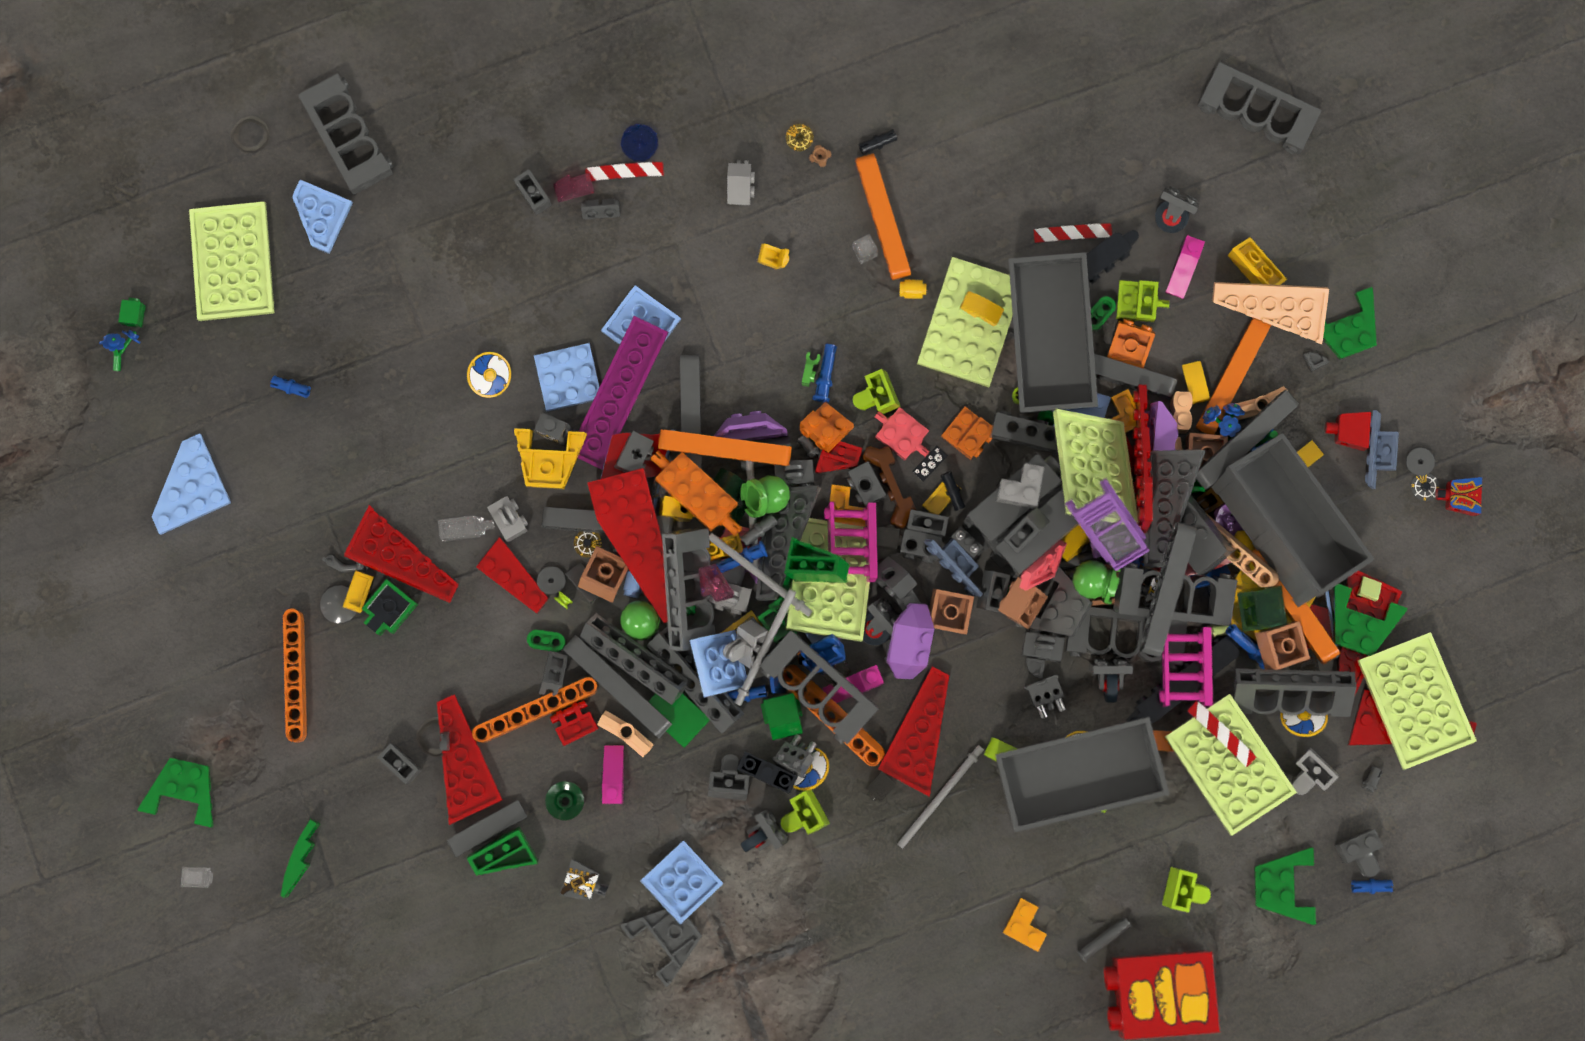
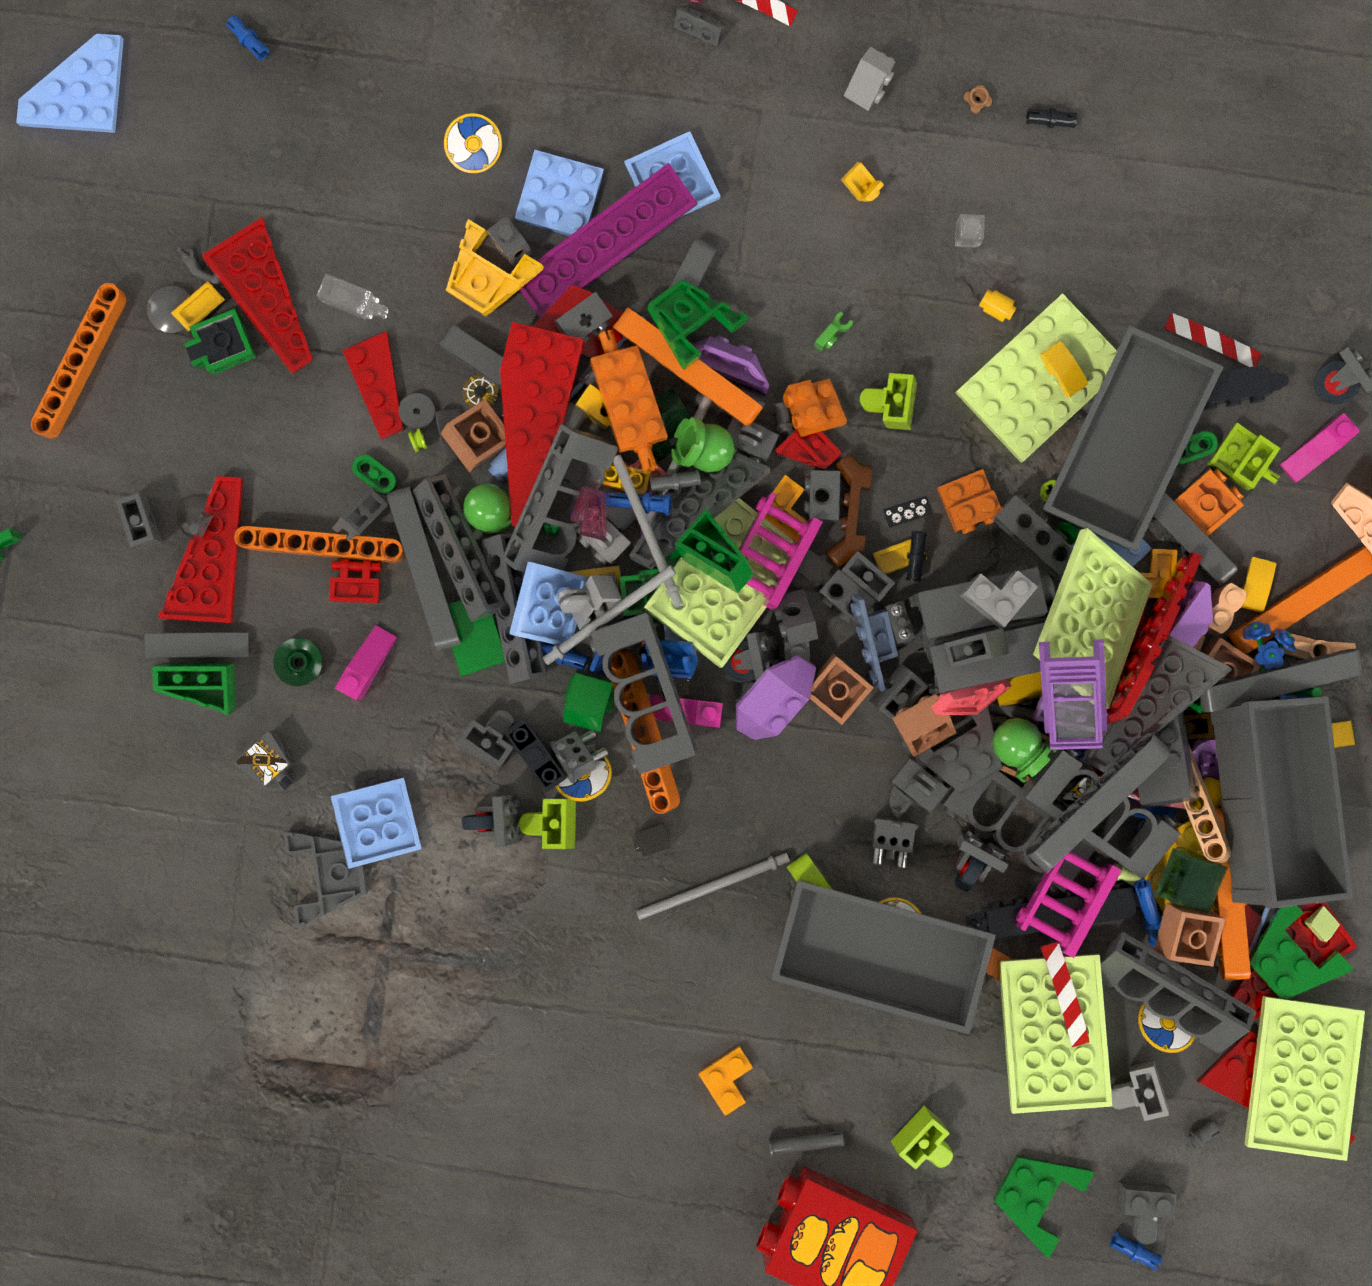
camera: 30 degrees right, 5 degrees up
(508, 519) = (405, 315): light grey brick -> none
(635, 740) = (399, 610): light nougat piece -> none
(700, 410) = (684, 310): none -> green wing
(799, 137) = (966, 64): clear yellow piece -> none
(824, 381) = (840, 356): blue pin -> none
(883, 216) = (1010, 205): orange beam -> none
(902, 434) = (895, 461): coral plate -> none
(916, 743) = (718, 813): red wing -> none

